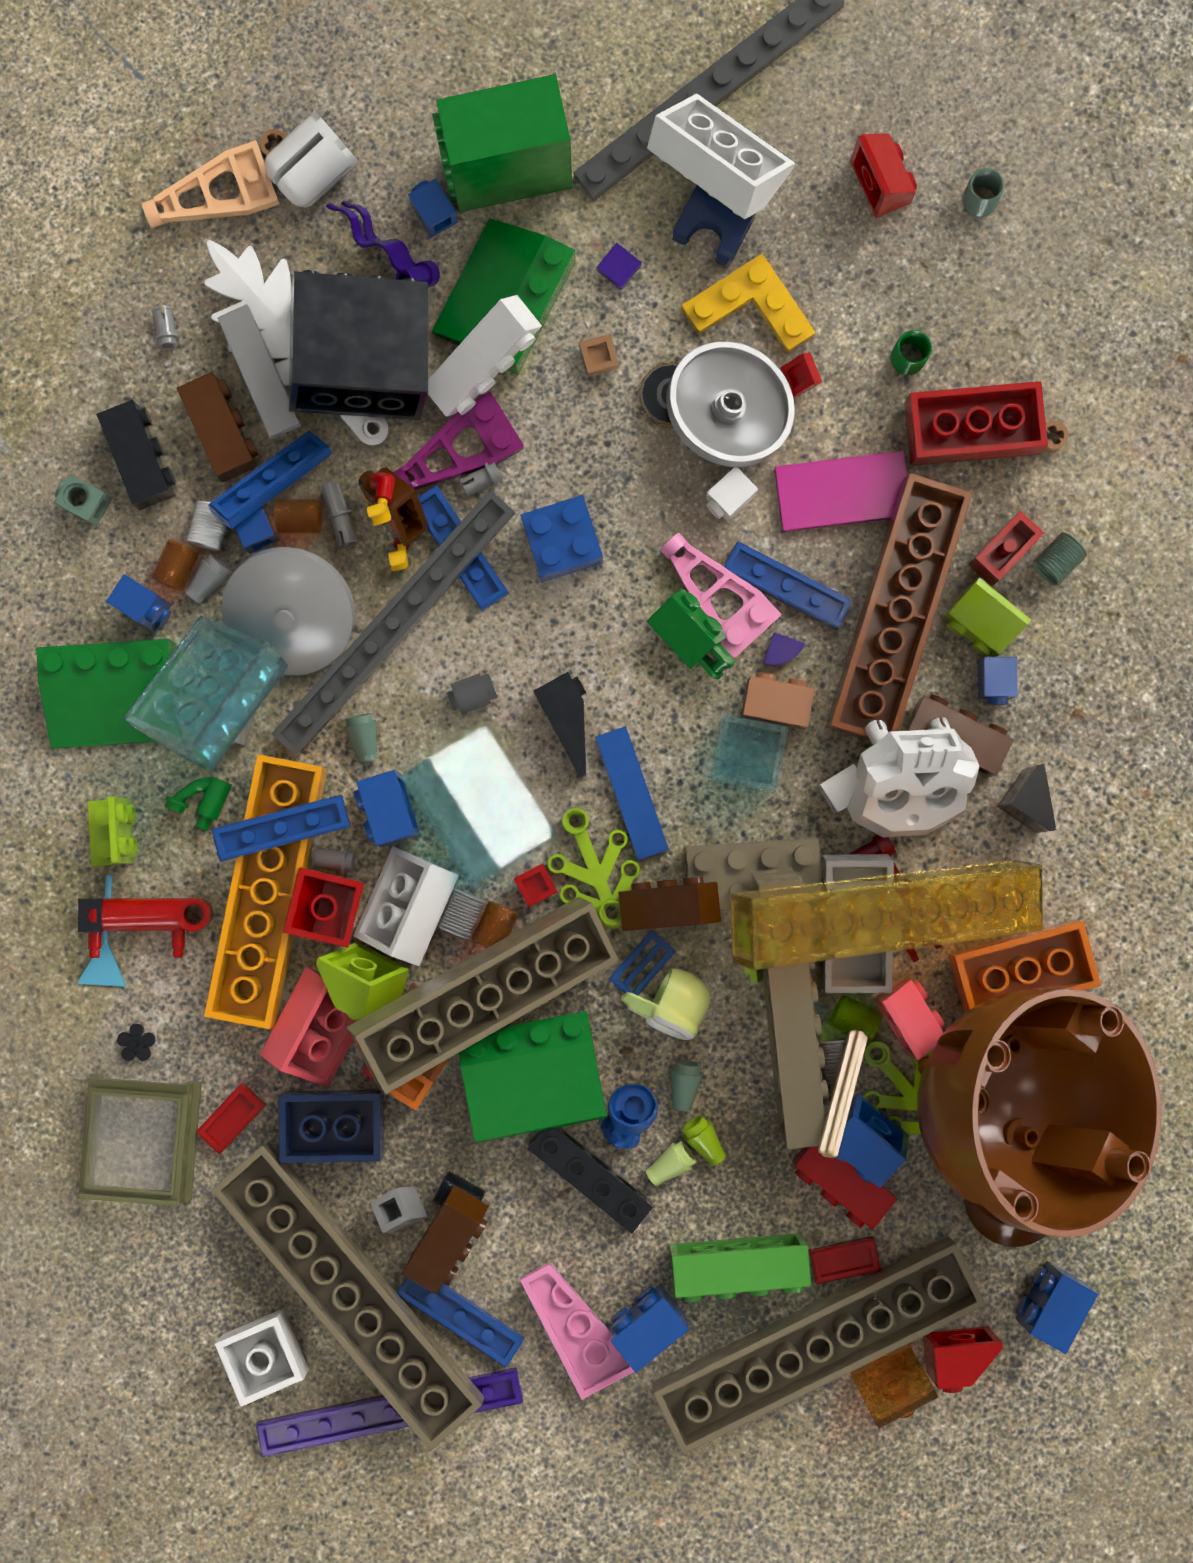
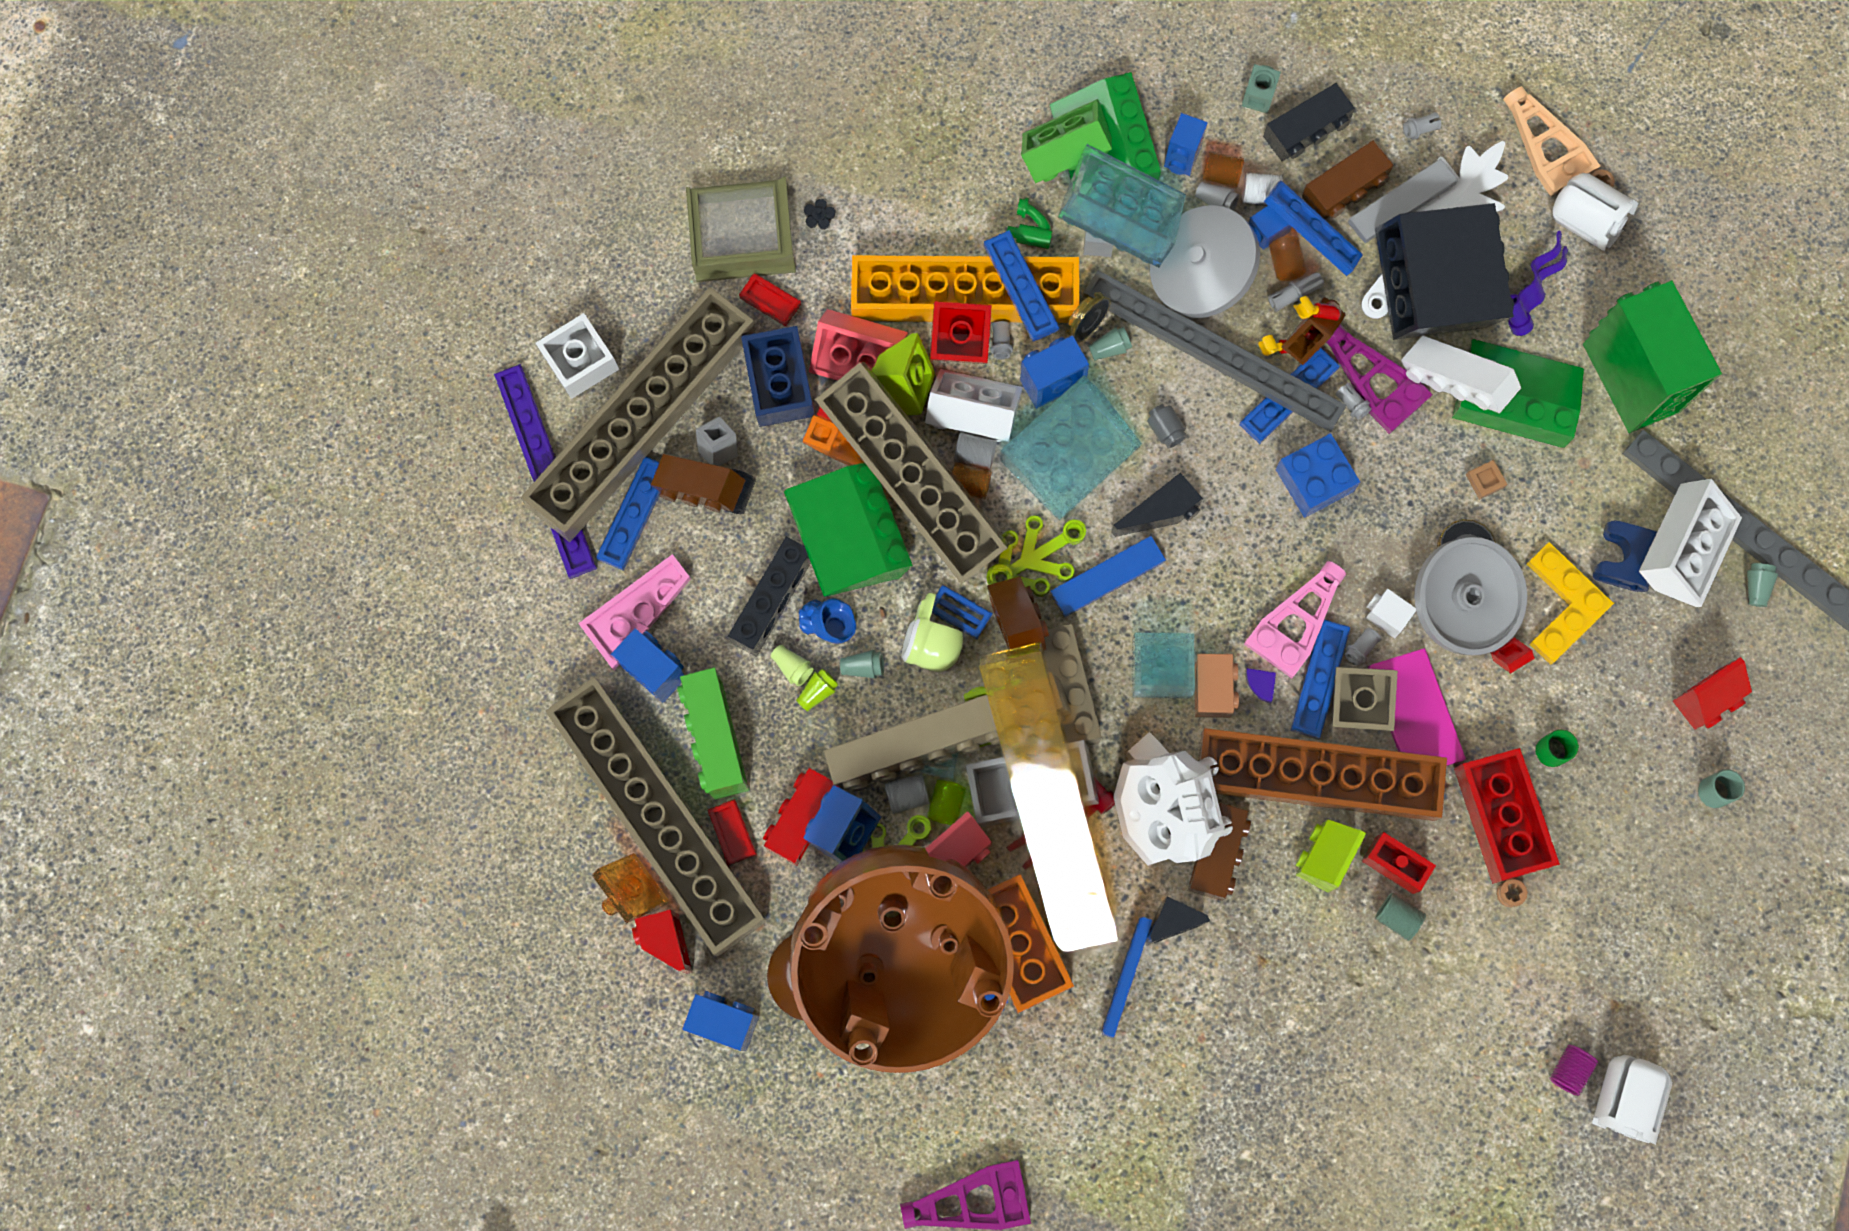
camera: 85 degrees right, 10 degrees down
(105, 968) = (876, 177): medium azure piece -> none
(106, 747) = (1061, 141): none -> bright green slope
(112, 831) = (991, 162): lime bracket -> none
(140, 914) = (926, 197): red piece -> none
(330, 758) = (1088, 317): none -> tile
(432, 207) = (1580, 318): blue brick -> none
(535, 885) = (1012, 508): red plate -> none
(619, 266) = (1569, 483): dark purple tile -> none
(692, 633) = (1259, 598): green brick -> none
(761, 532) = (1360, 649): none -> light grey pin
(769, 92) = (1761, 583): none -> sand green cone
(824, 544) = (1364, 698): none -> dark tan brick
(842, 1094) = (880, 791): tan axle -> none
(997, 679) = (1277, 878): brick -> none
(1075, 861) = (1126, 977): none -> blue tile

